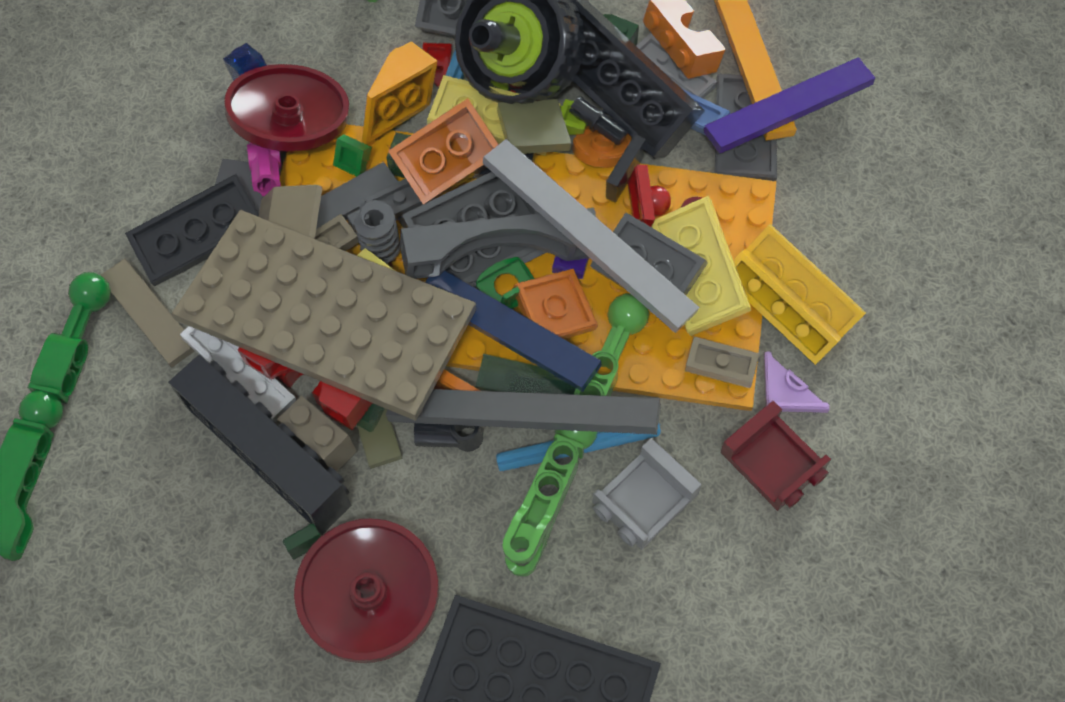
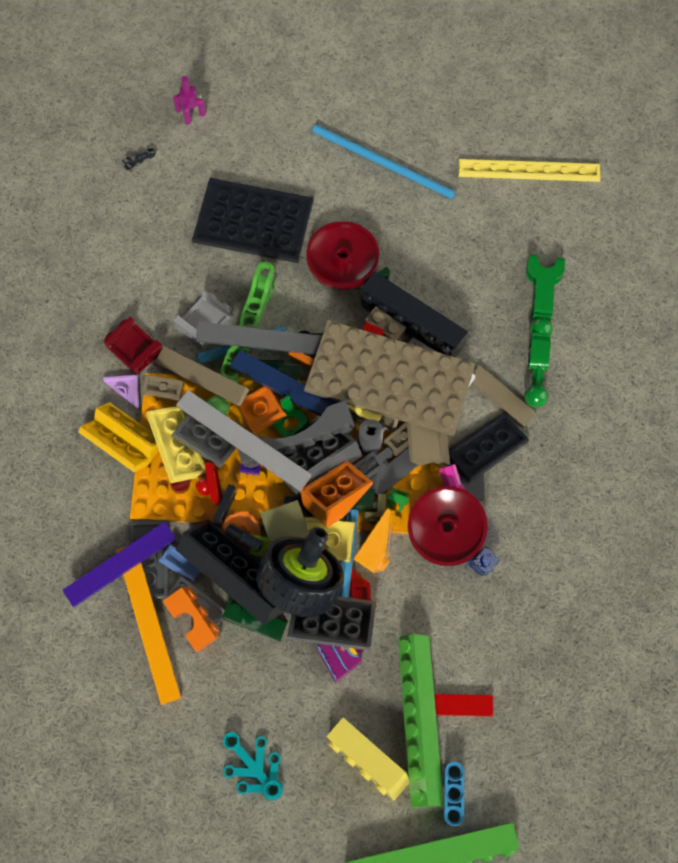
camera: 170 degrees right, 5 degrees up
(384, 136) = (379, 507): none -> olive bracket
(654, 367) = (202, 376): none -> dark tan tile

